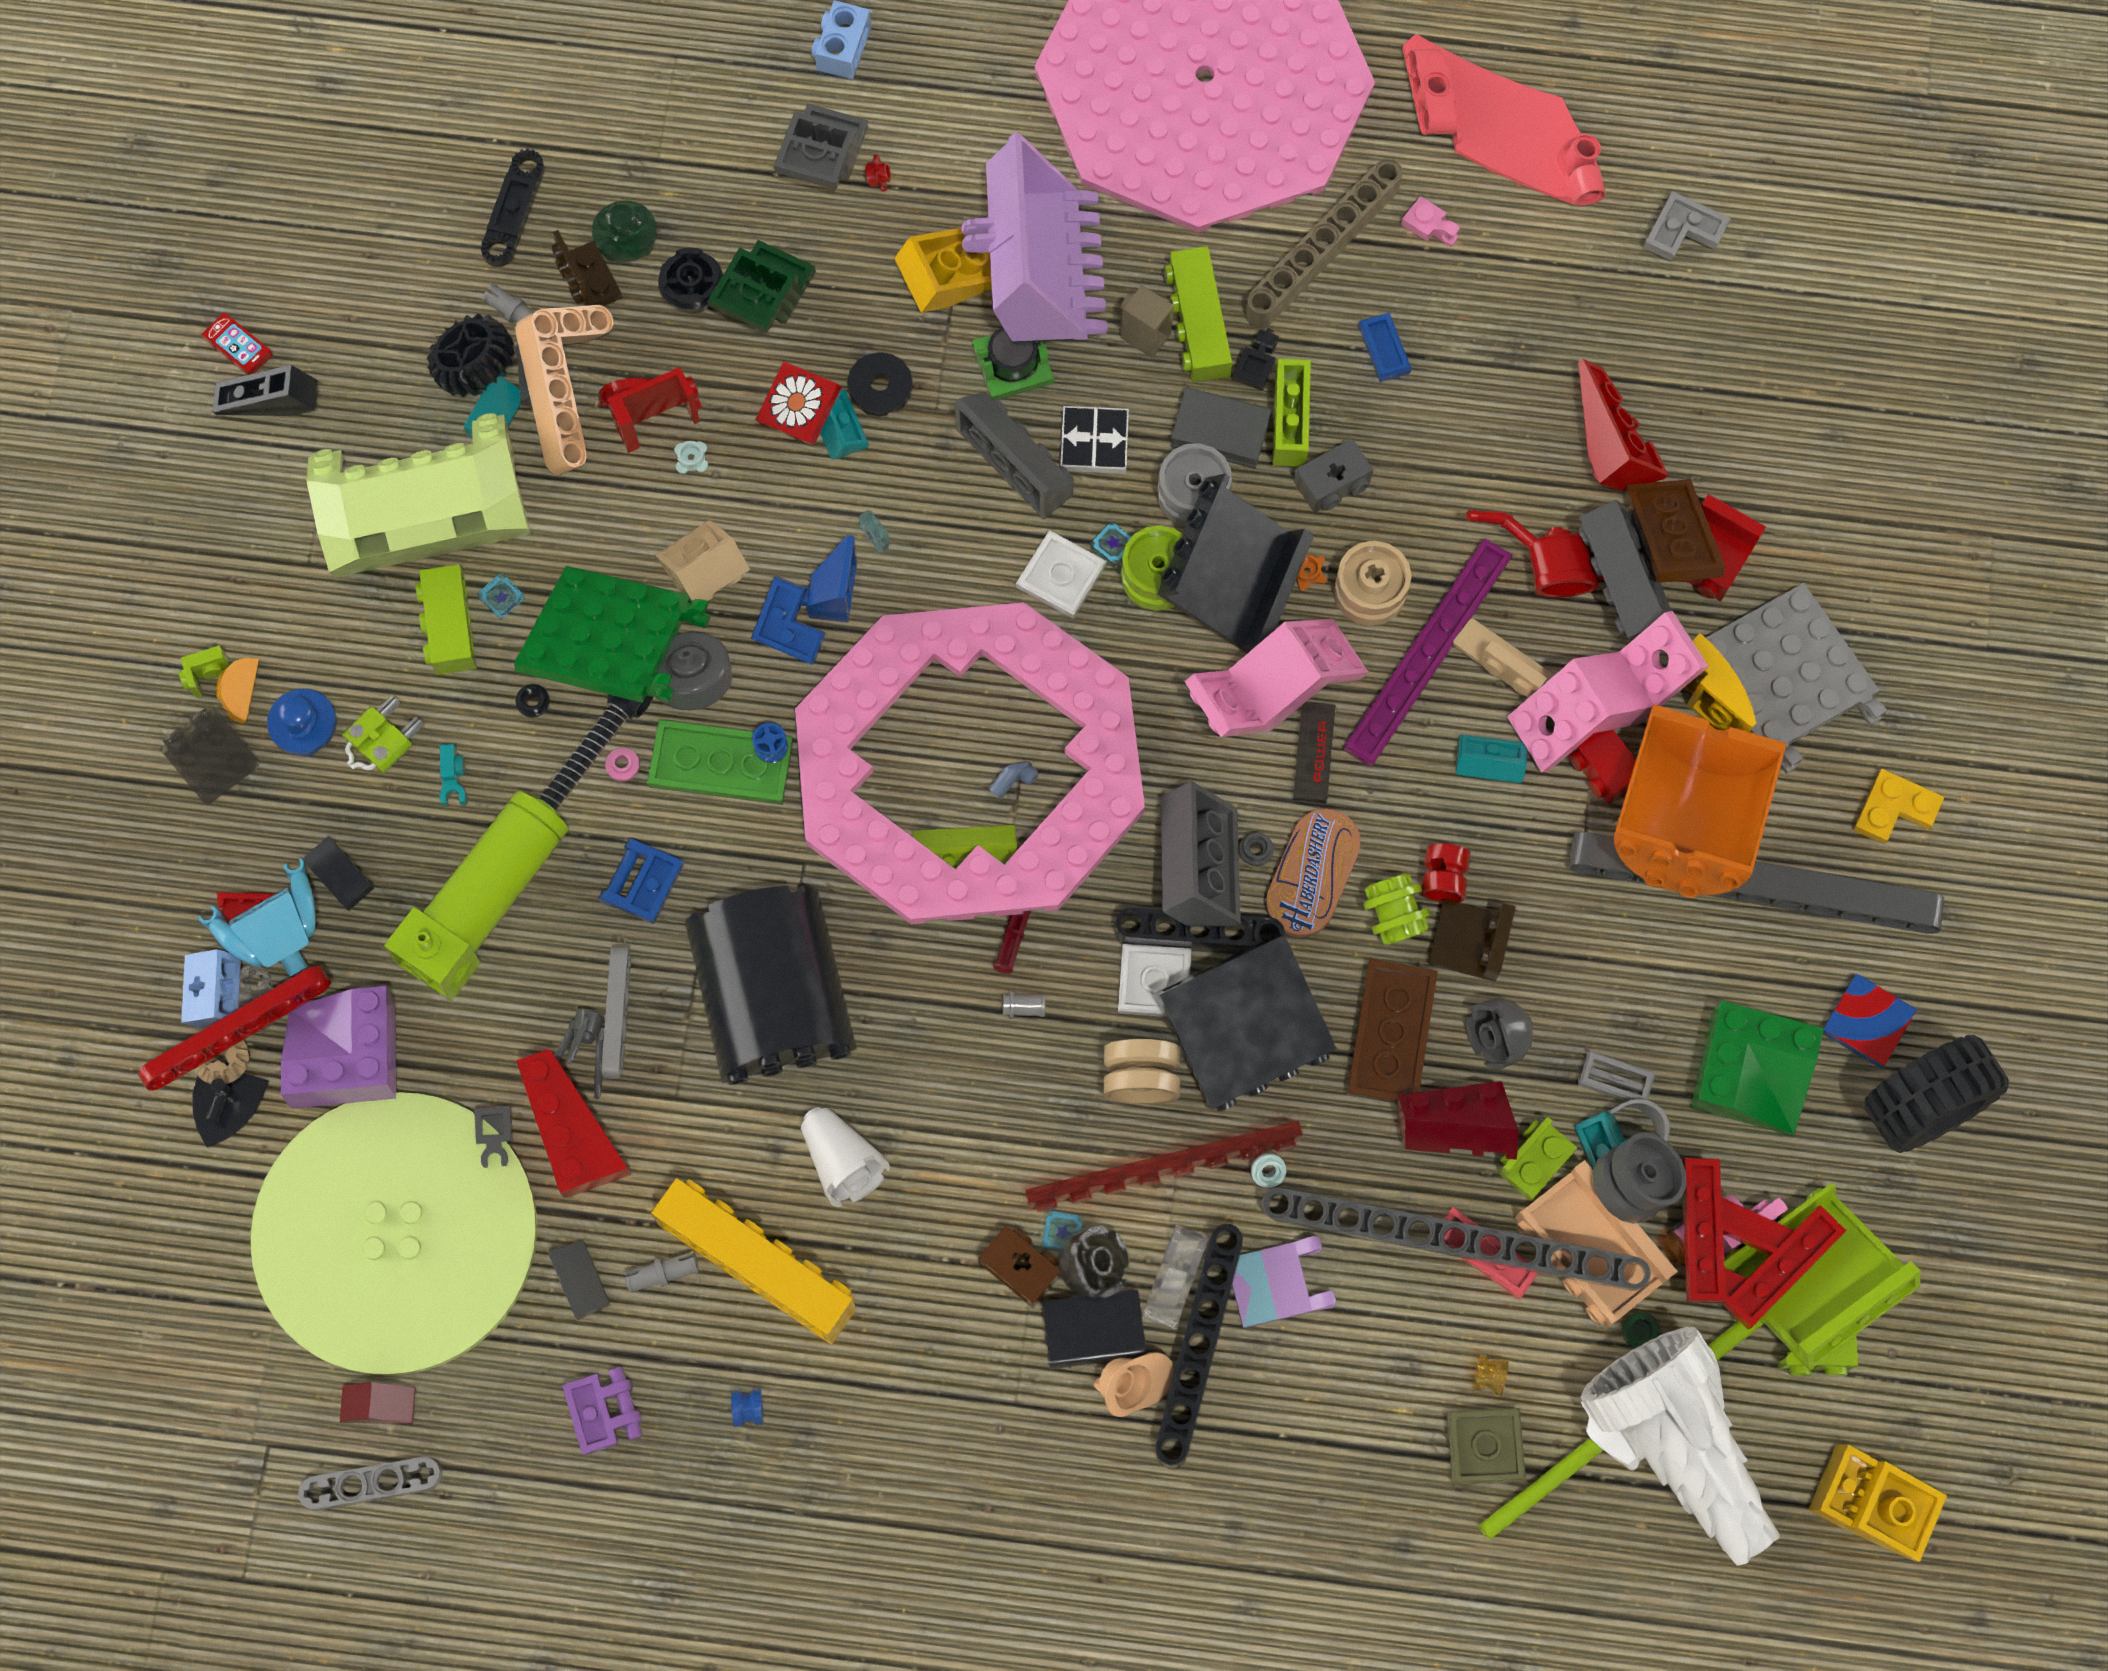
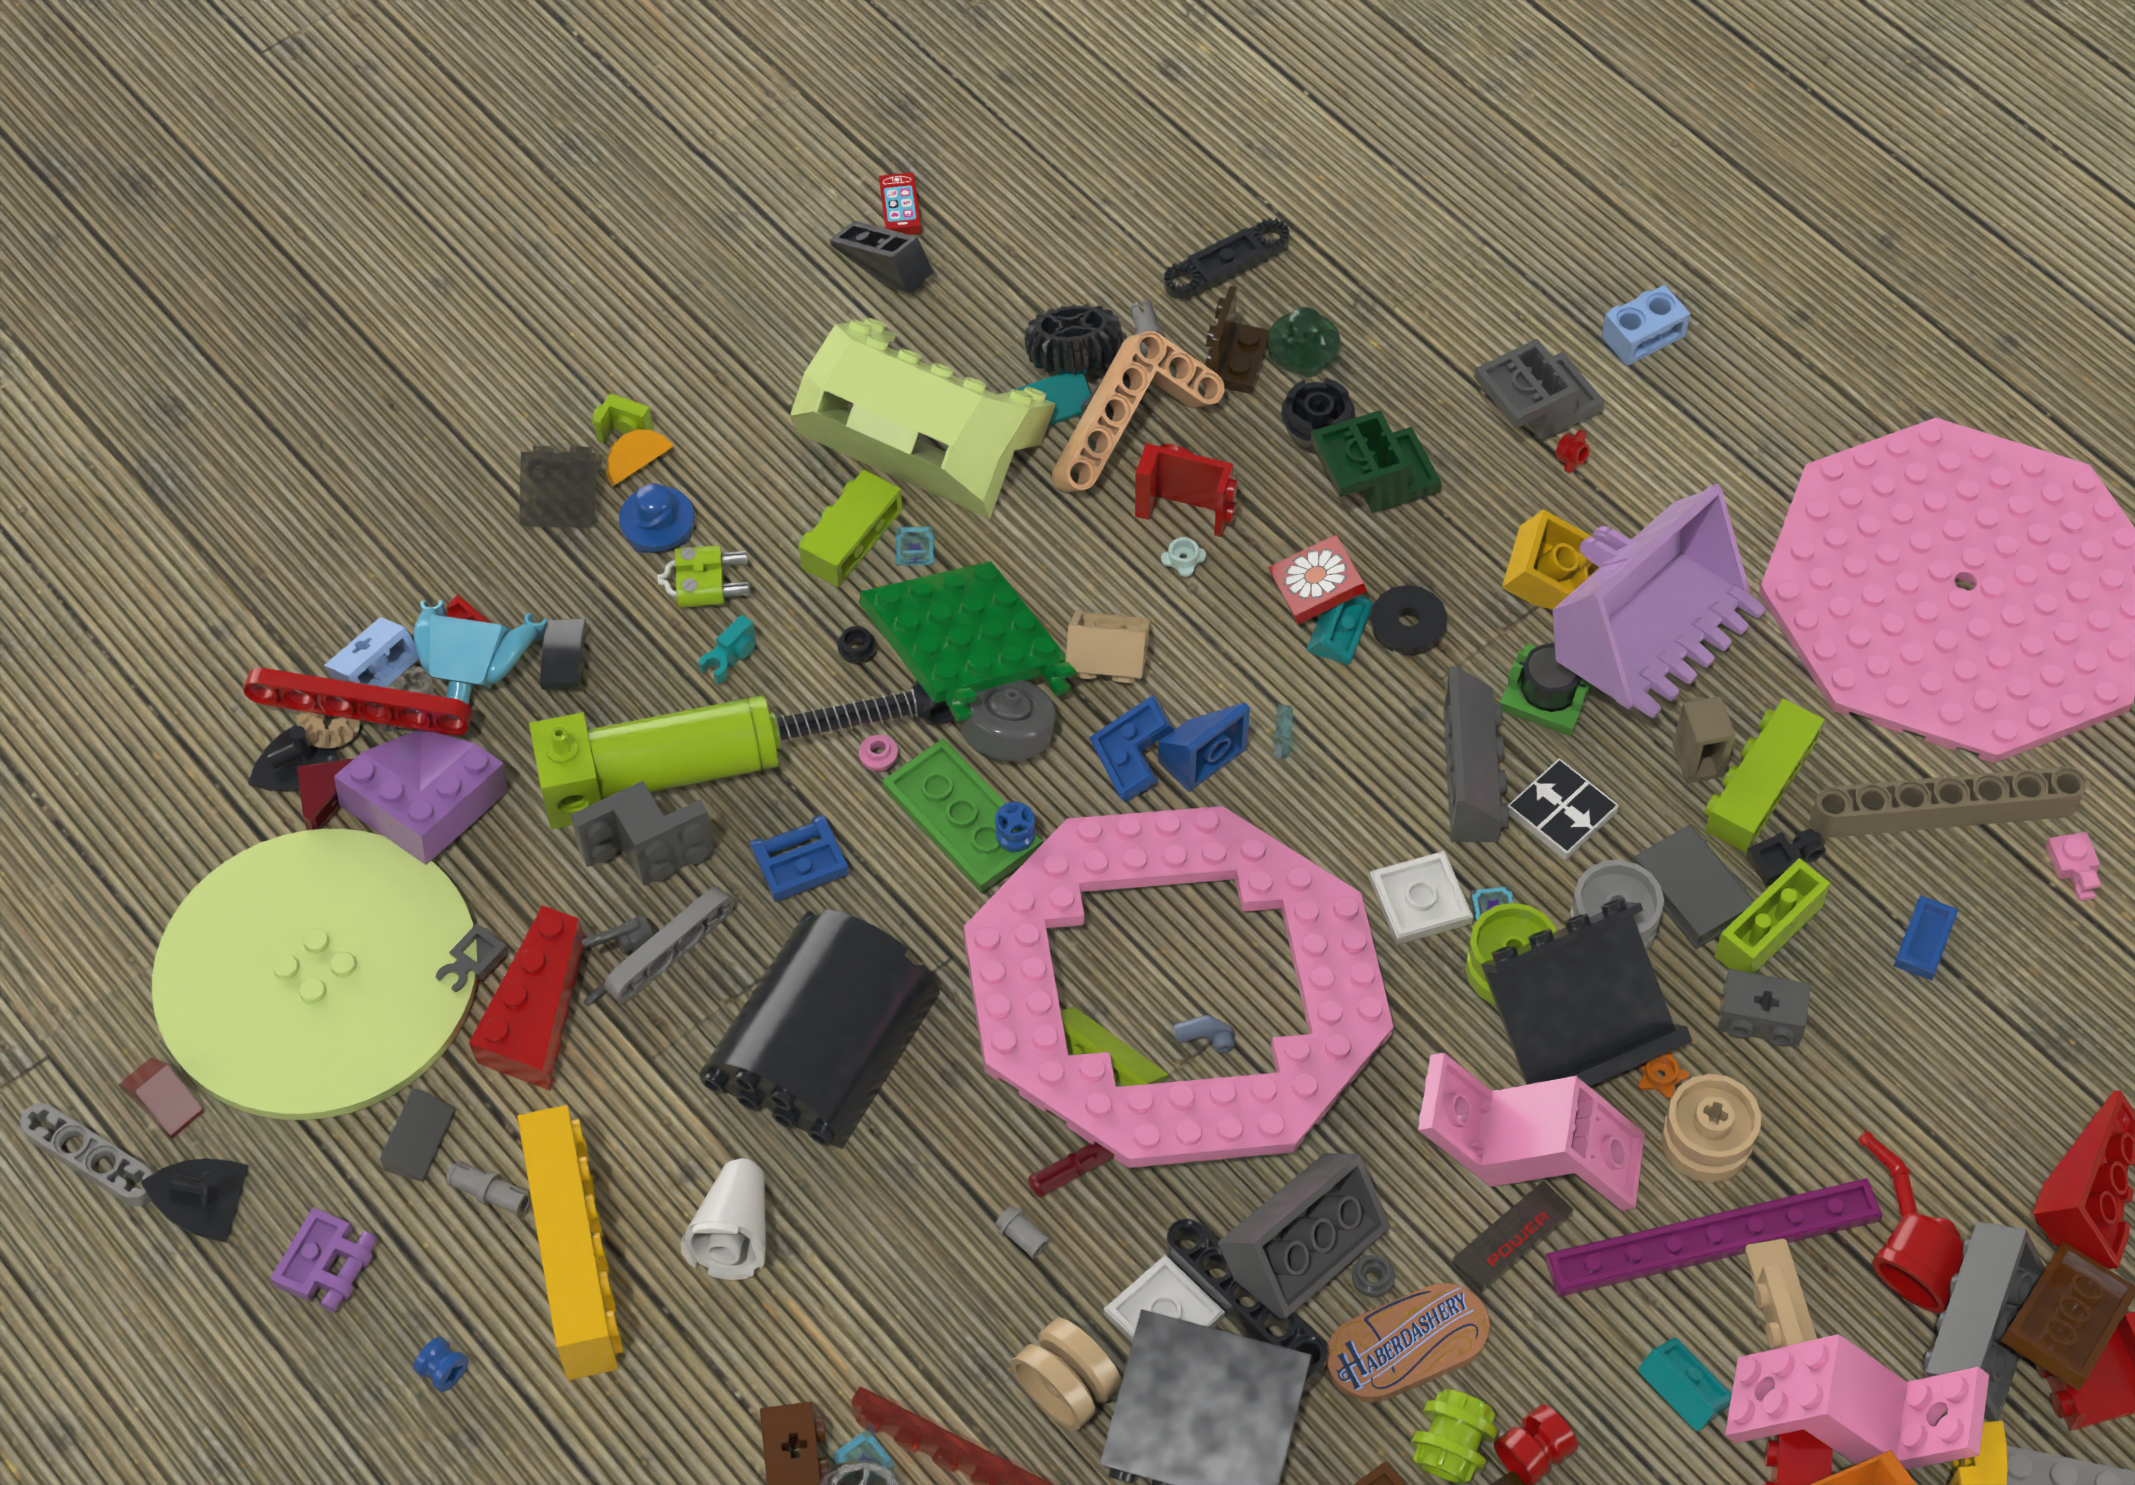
camera: 45 degrees right, 15 degrees down
(270, 1109) = (319, 792): none -> dark red slope
(474, 1443) = (198, 1195): none -> black shield
(529, 954) = (636, 826): none -> dark grey bracket

